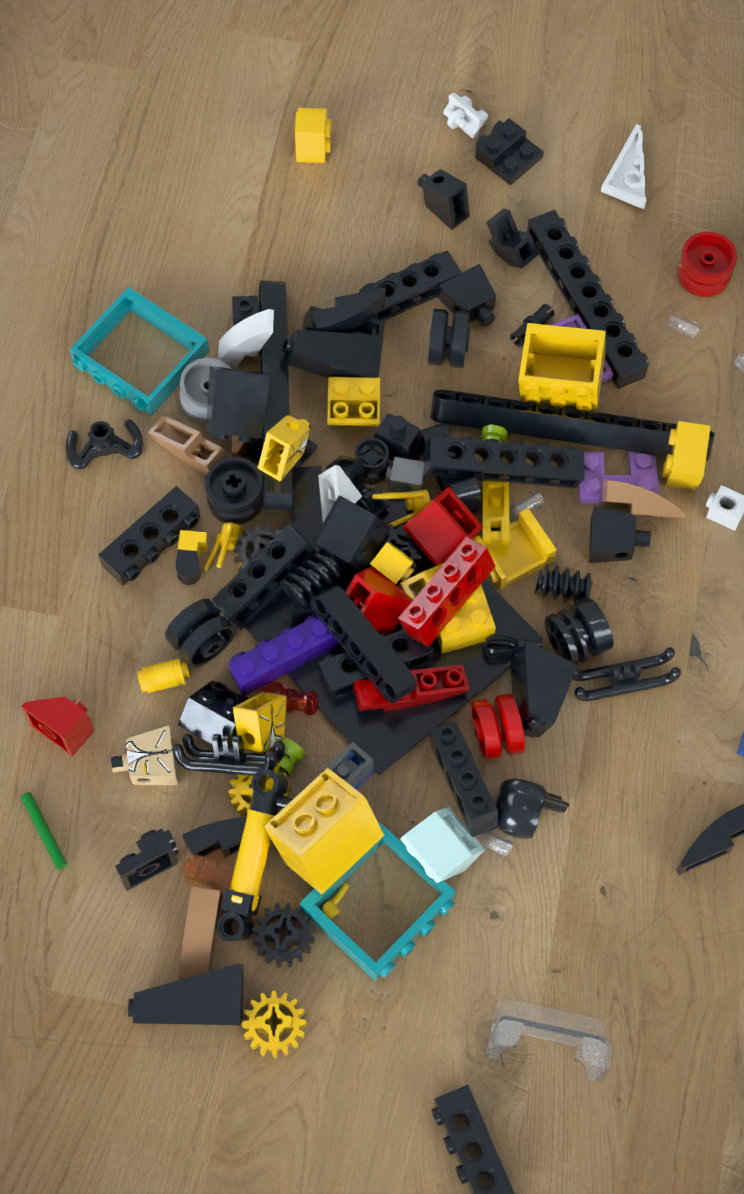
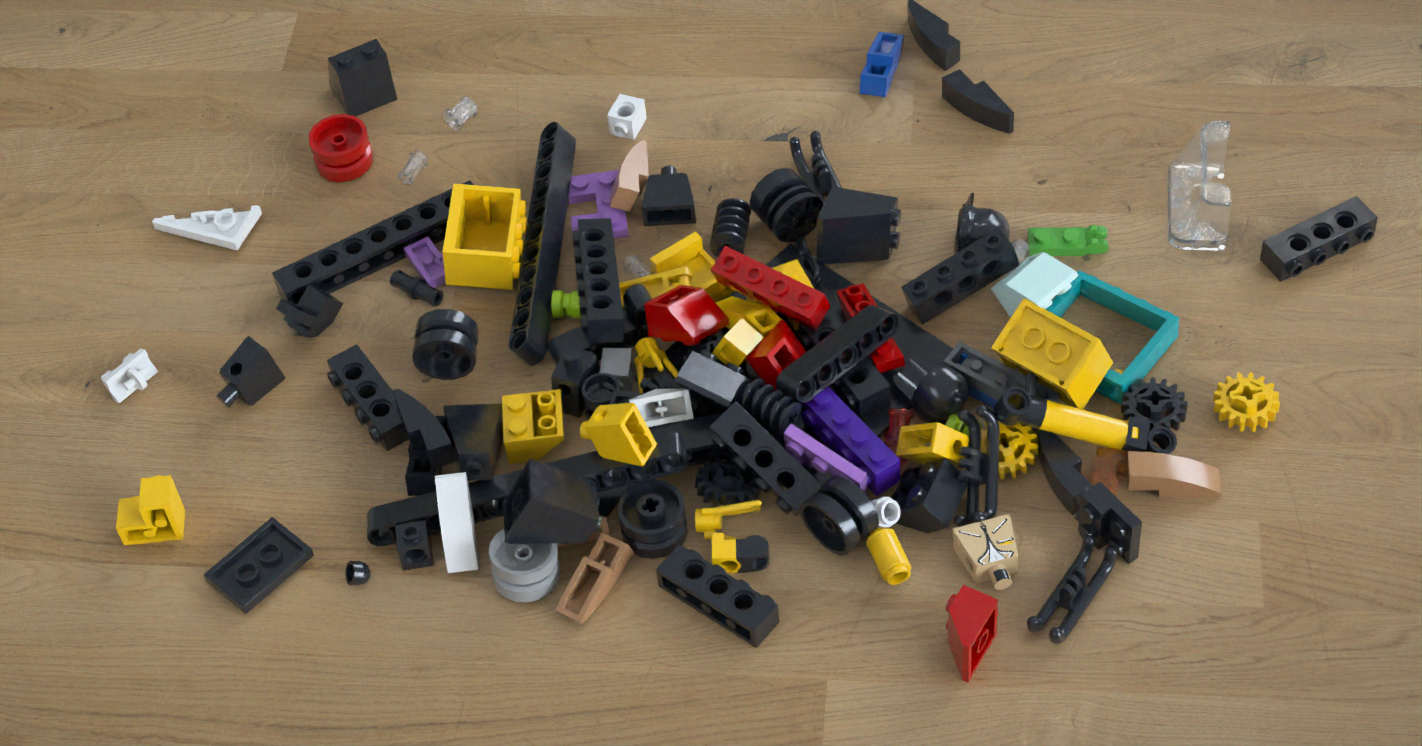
camera: 90 degrees left, 15 degrees down
(44, 831) = (1090, 641): green bar -> none
(91, 819) = (1073, 593): none -> black piece
(103, 443) = (598, 667): black piece -> none
(159, 318) = (431, 621): teal window -> none
(196, 1000) = (1242, 466): black slope -> none
(204, 671) = (887, 511): none -> white cone
(231, 275) = (357, 573): none -> black hinge
(253, 209) = (258, 565): none -> black plate
(266, 606) = (813, 453): none -> medium lavender plate
(328, 735) = (932, 390): none -> black piece
(471, 294) = (383, 340): black torso -> none
(498, 727) = (899, 253): red wheel -> none
(507, 151) = (181, 334): black plate -> none
(514, 894) = (1068, 240): none -> bright green hinge
(687, 463) = (581, 132): yellow brick -> none

